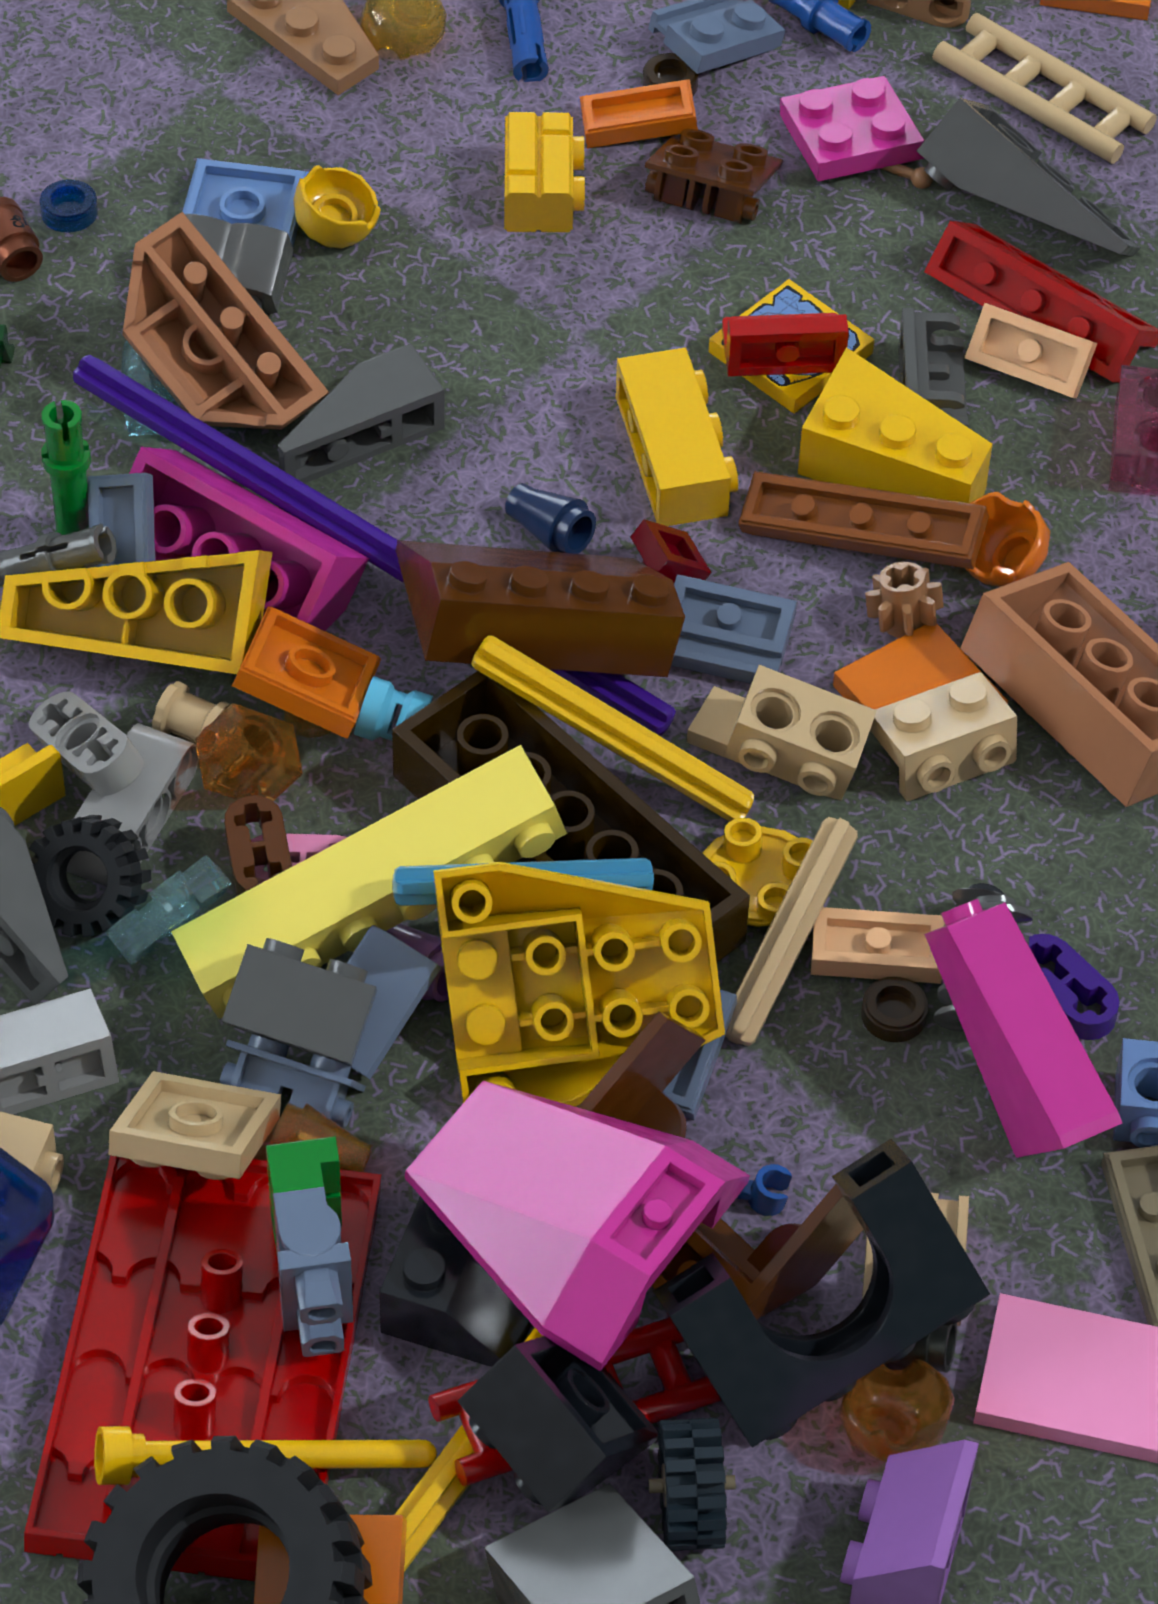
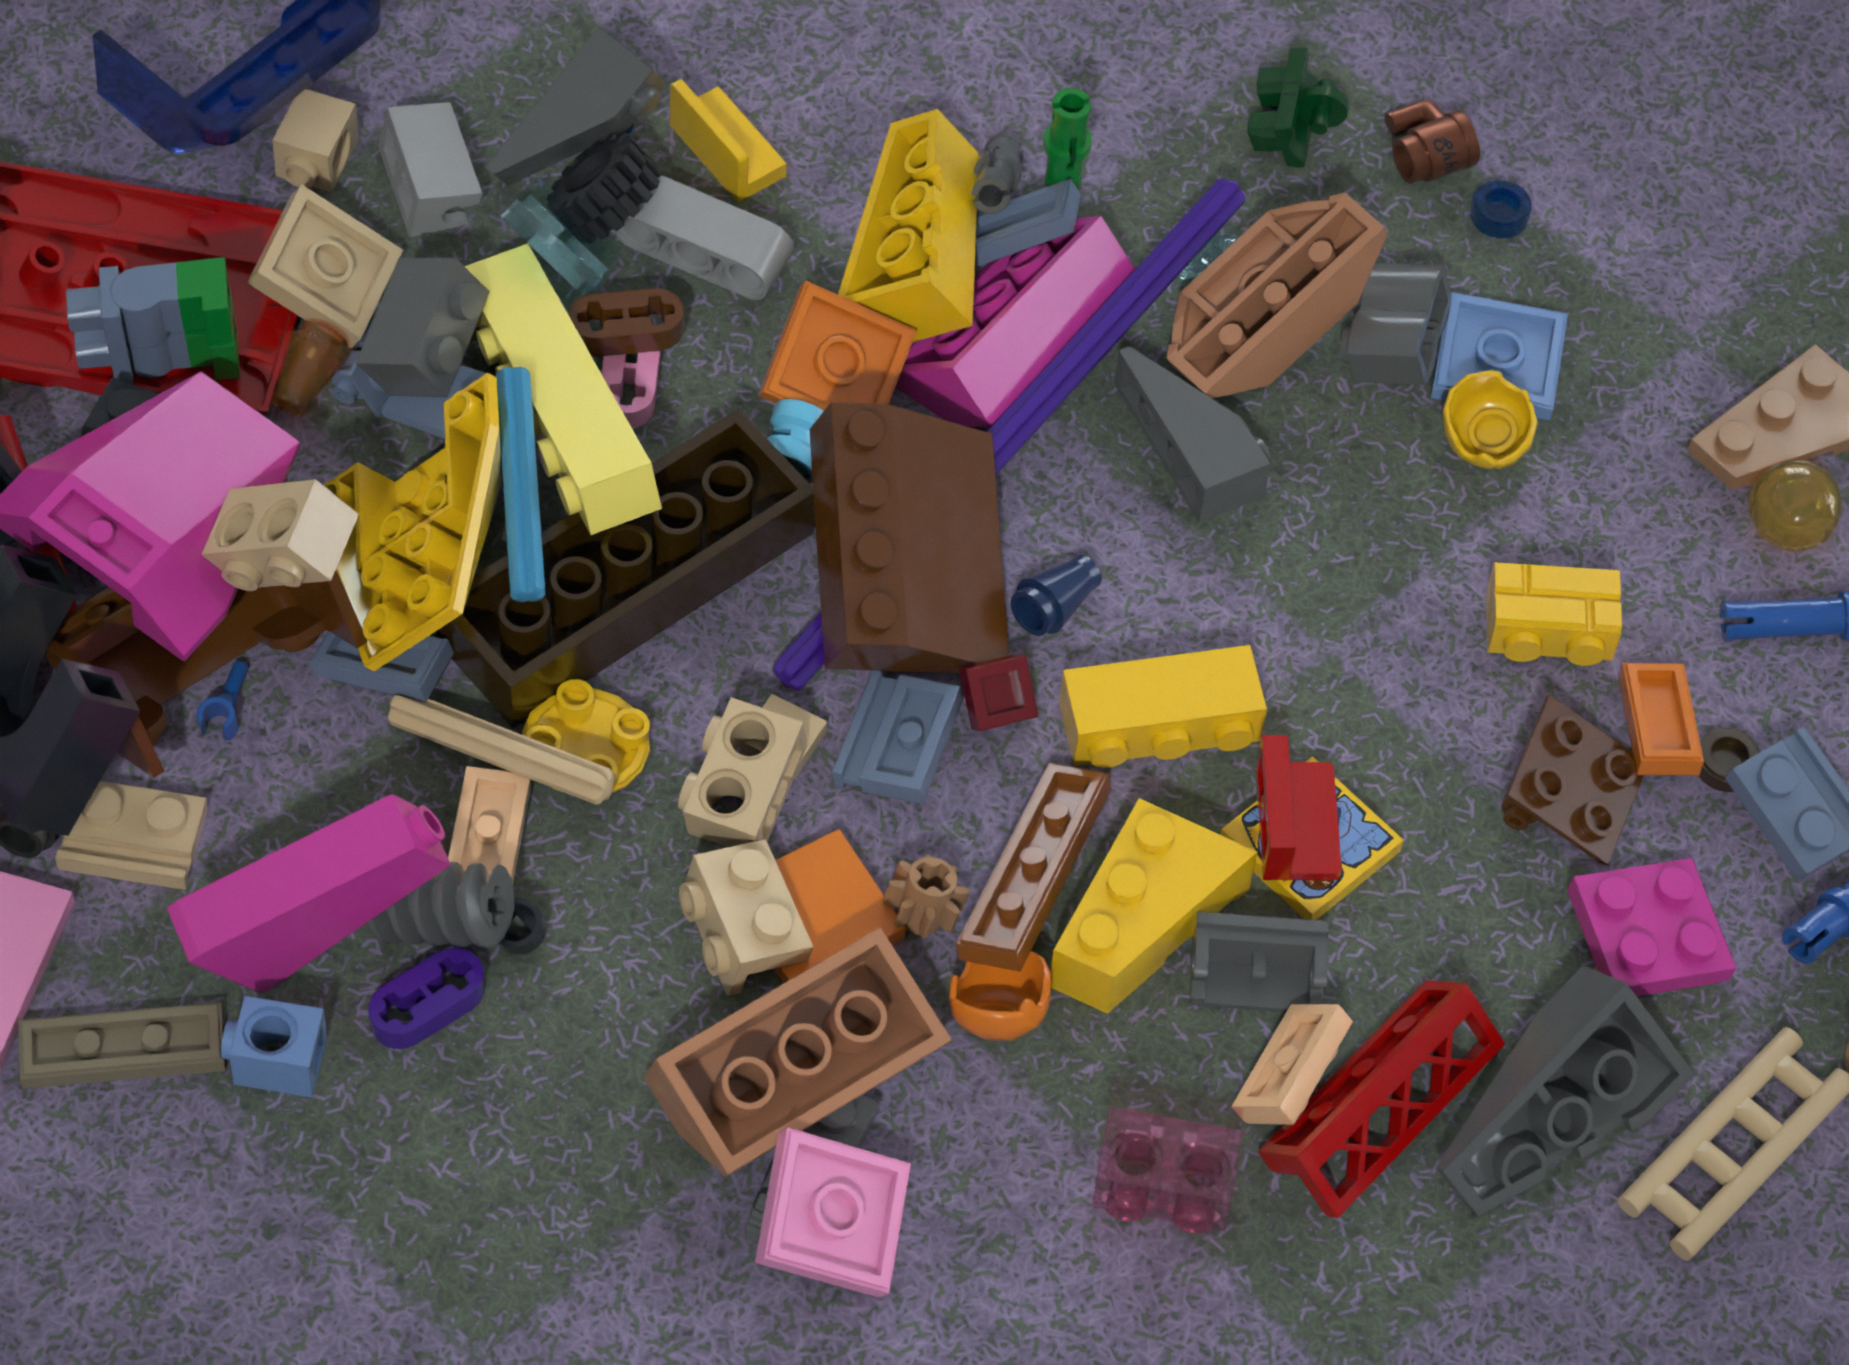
camera: 90 degrees right, 5 degrees up
(87, 743) = (760, 190): light grey beam -> none
(184, 713) = (809, 266): tan bush -> none
(248, 754) = (762, 334): clear orange brick -> none
(612, 729) = (739, 601): yellow axle -> none
(624, 1051) = (279, 535): none -> tan brick

